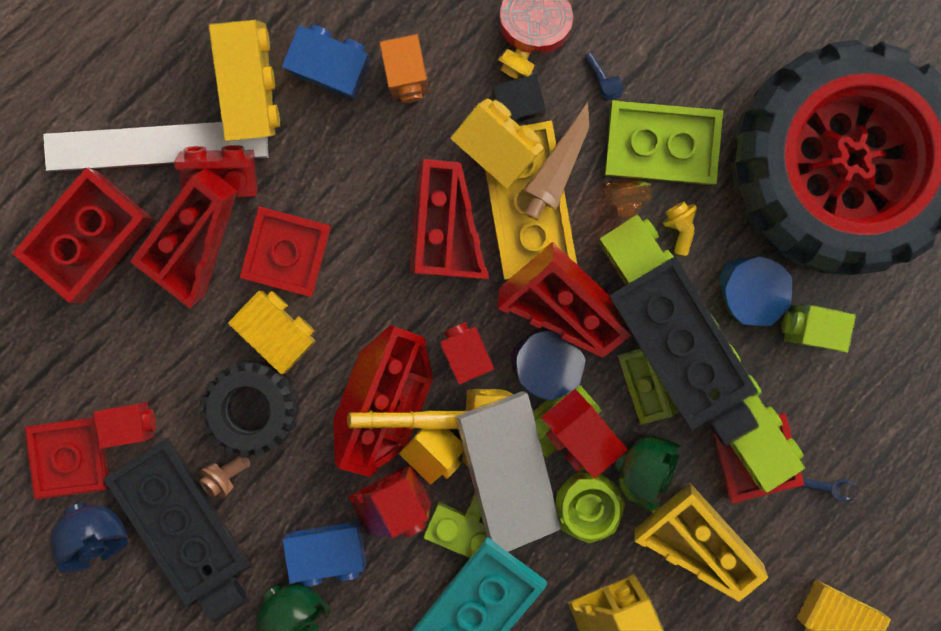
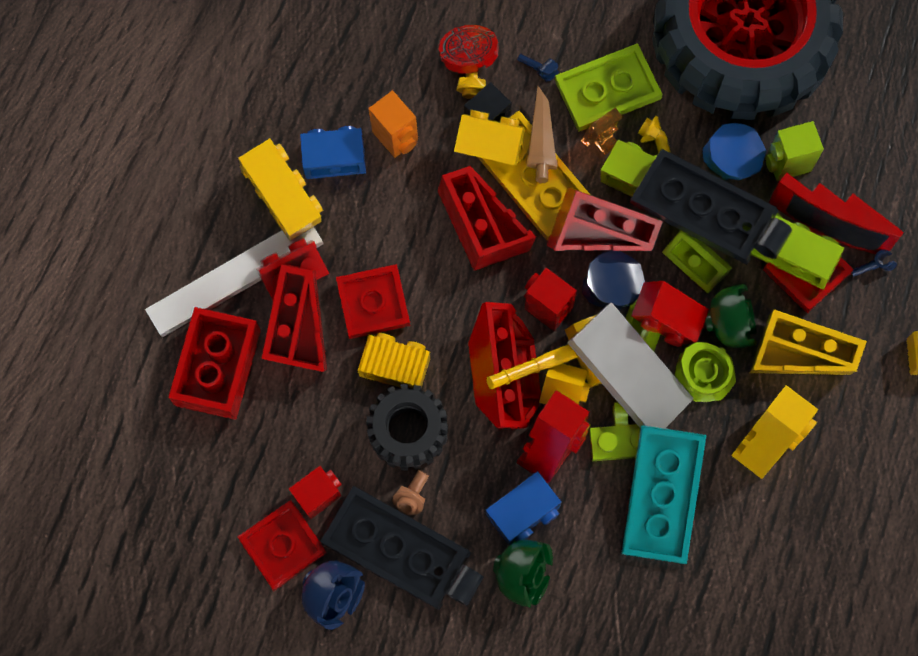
camera: 25 degrees left, 15 degrees down
(826, 432) = (847, 222): none -> slope

